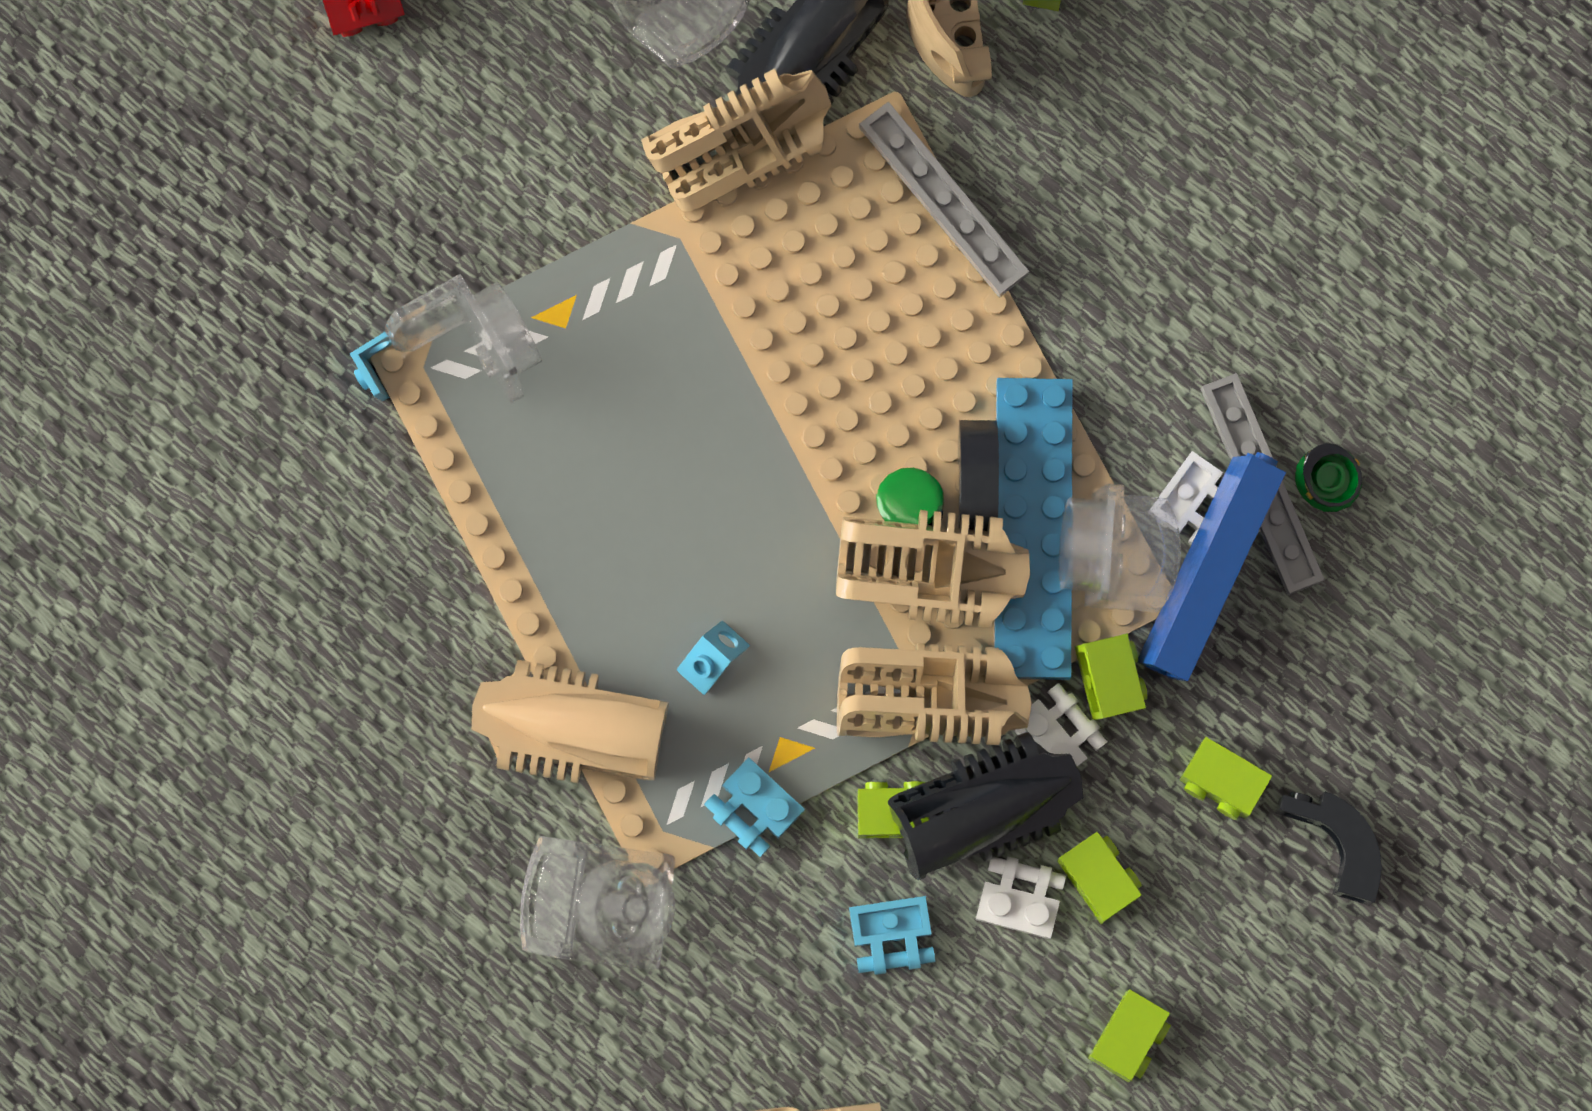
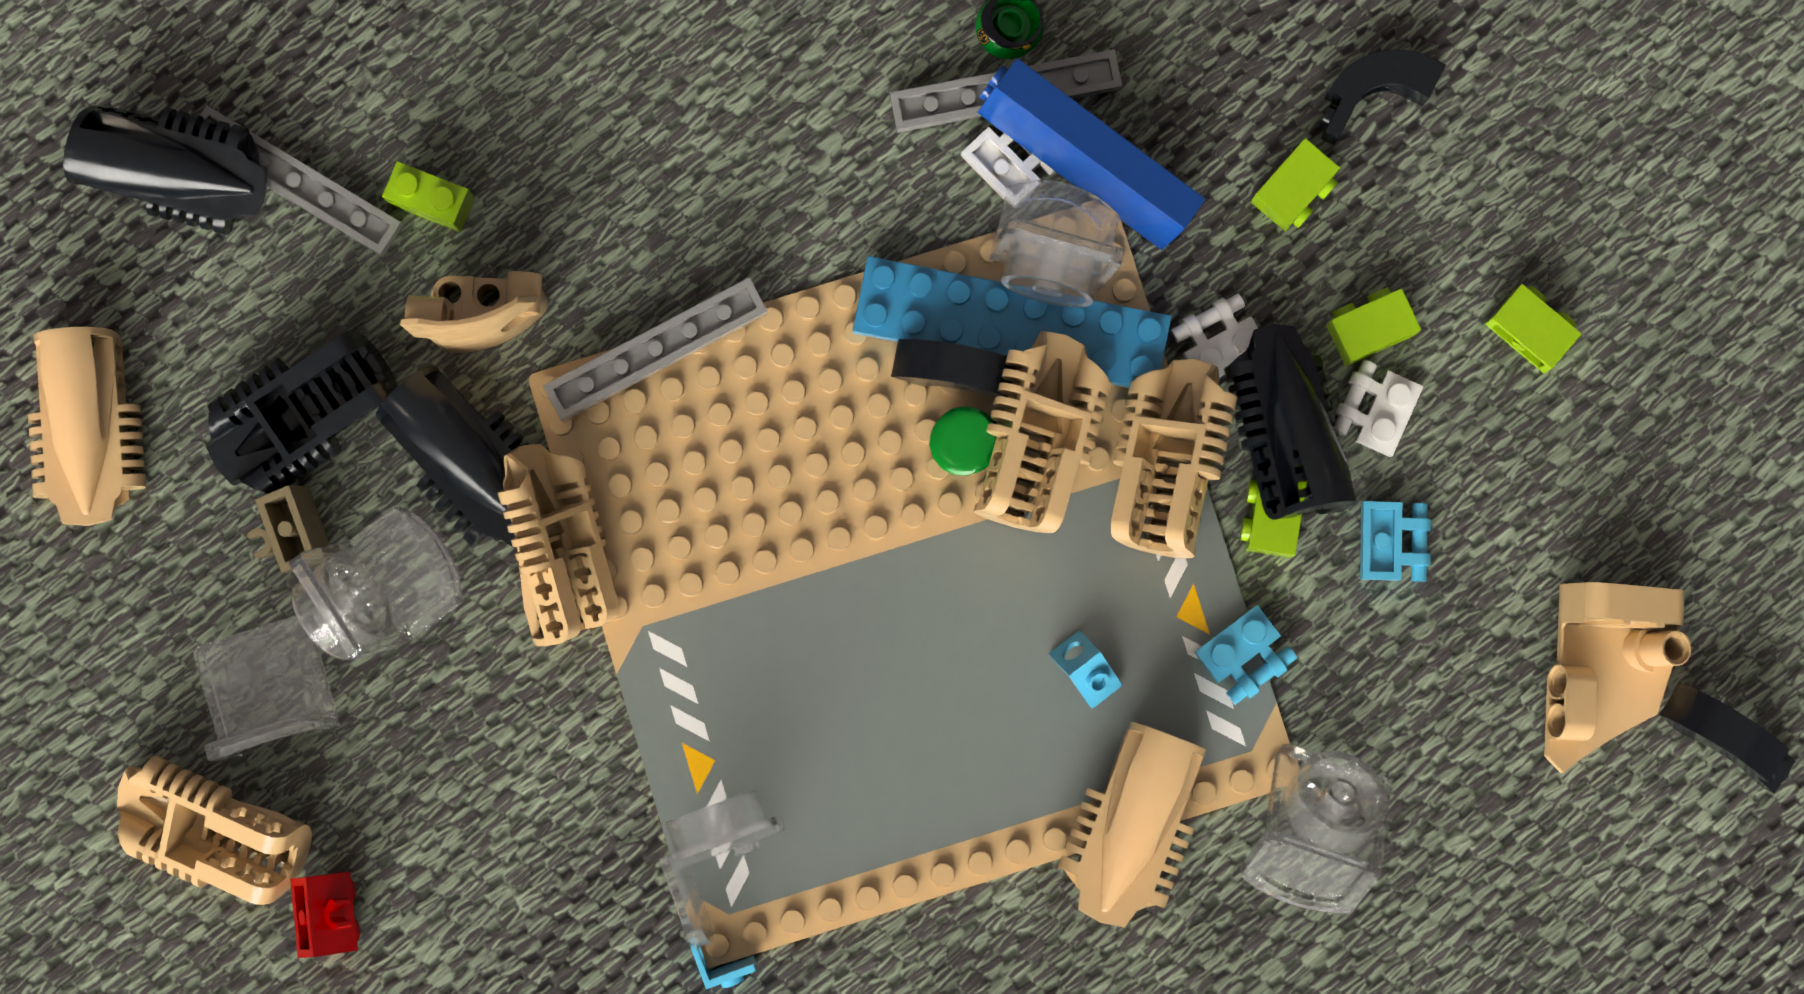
camera: 75 degrees left, 5 degrees up
(1111, 676) = (1176, 276): lime brick -> none

